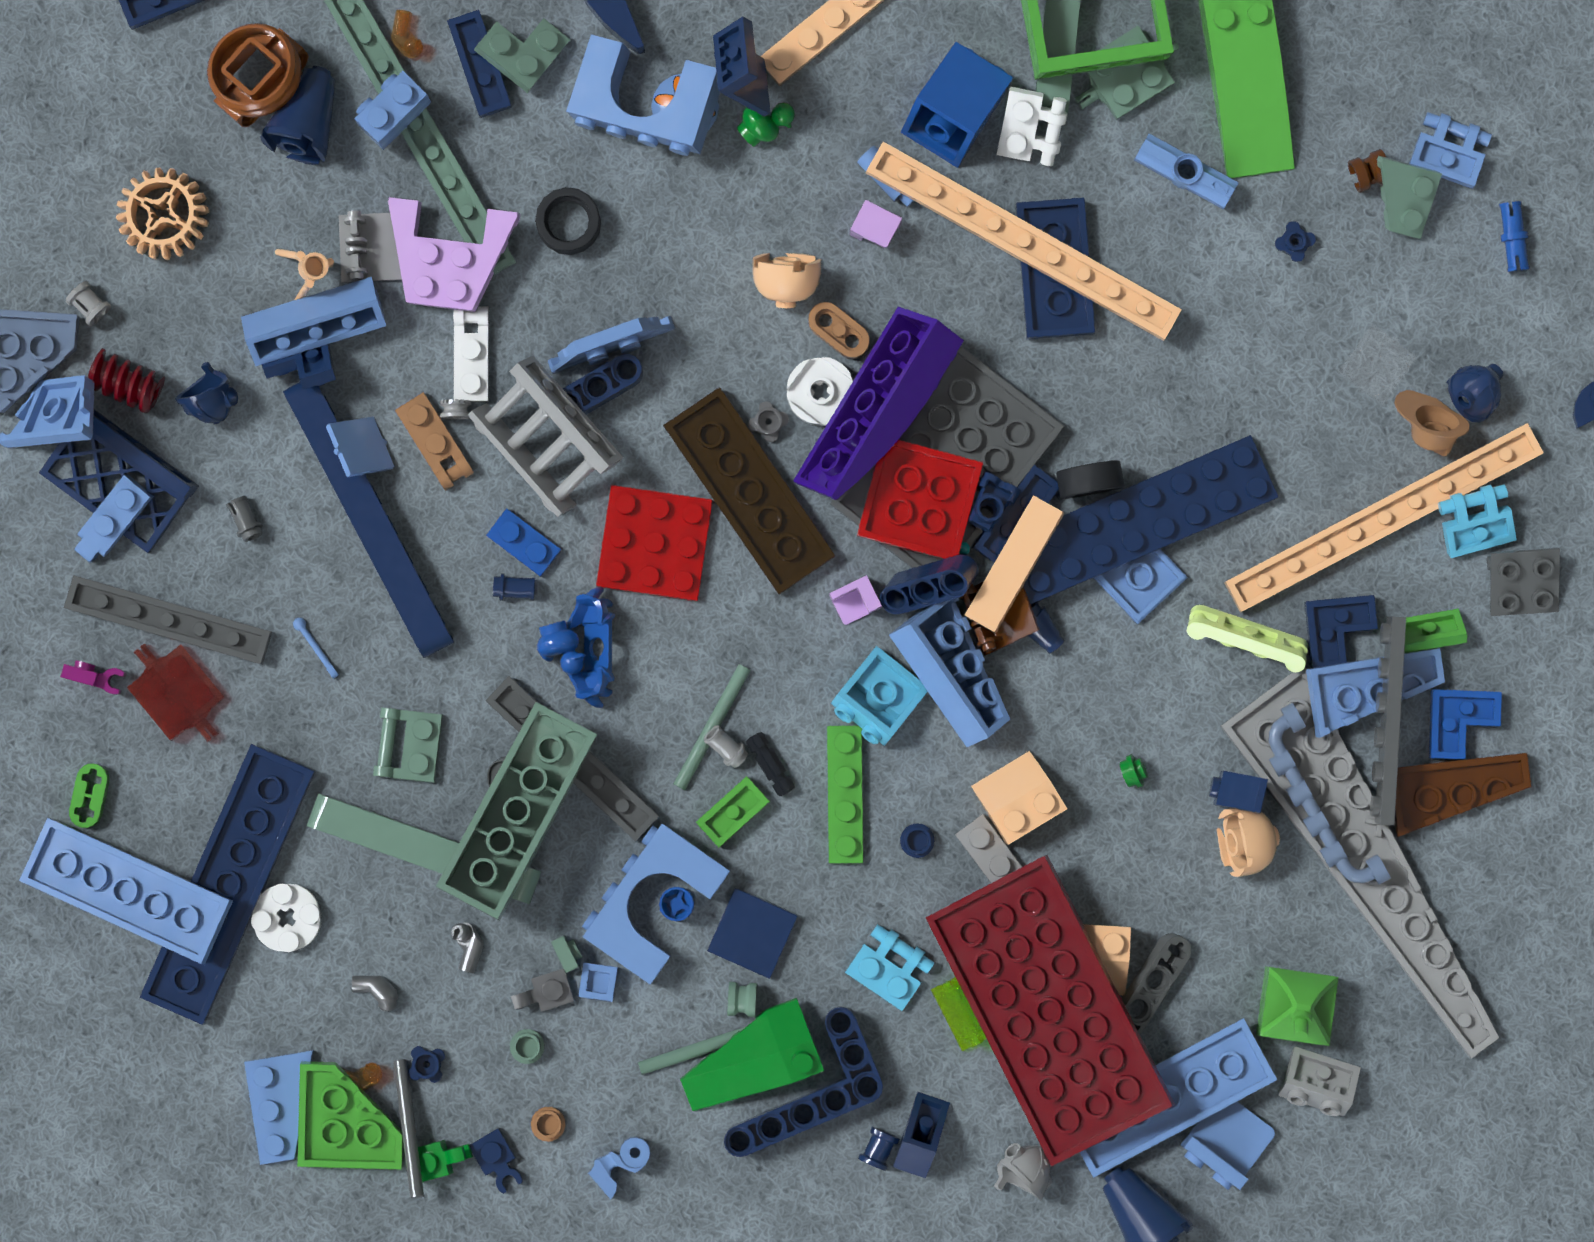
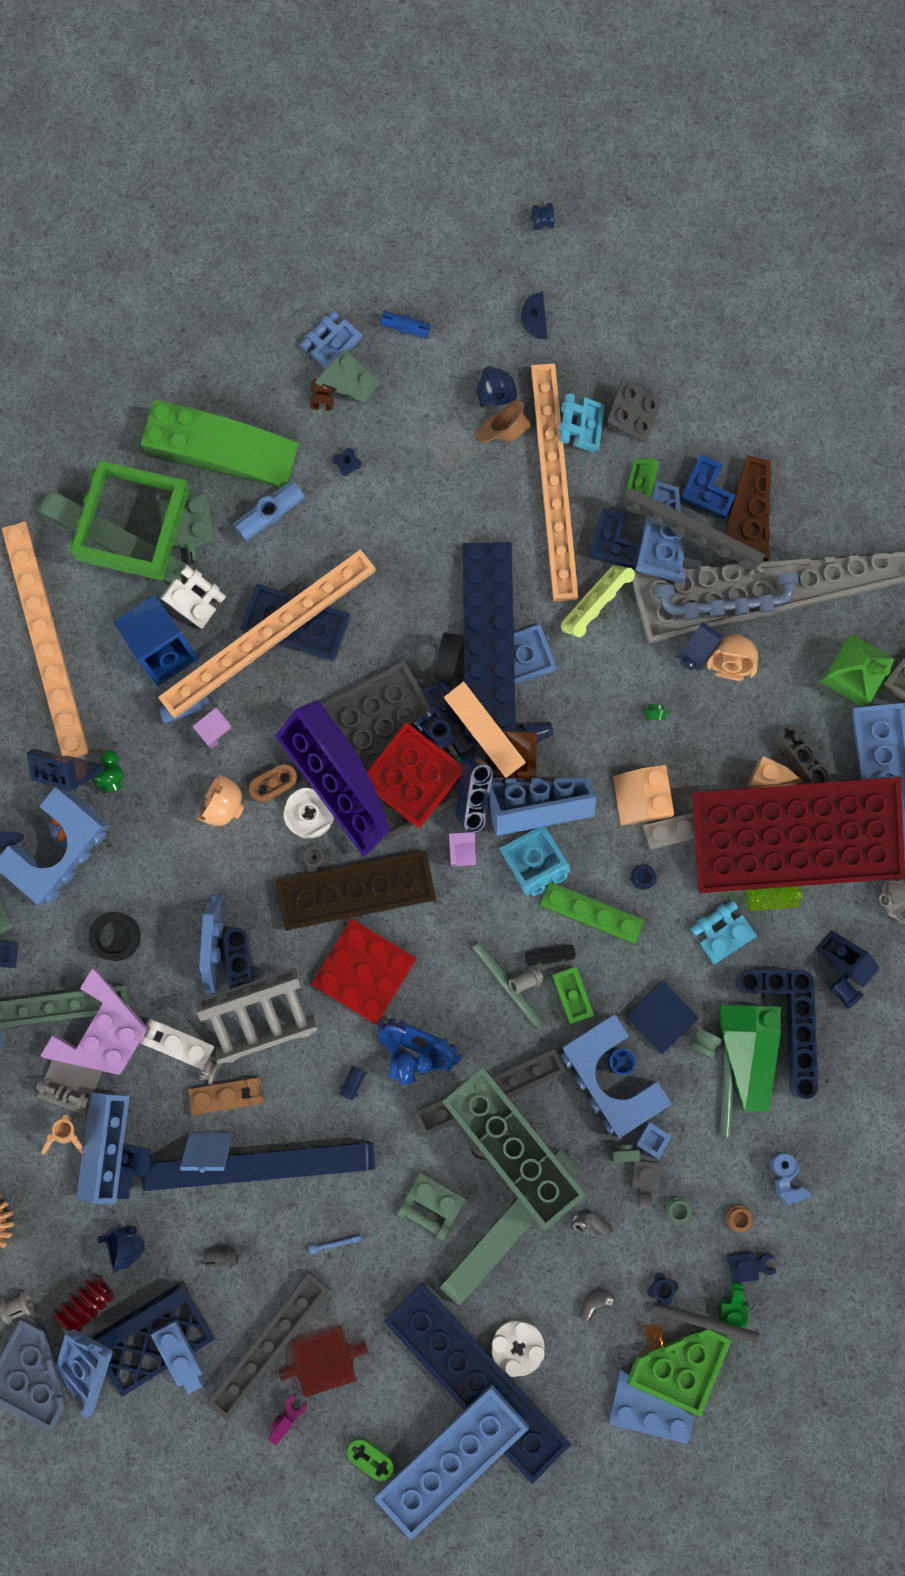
camera: 70 degrees left, 5 degrees down
(523, 542) = (324, 1062): blue plate -> none

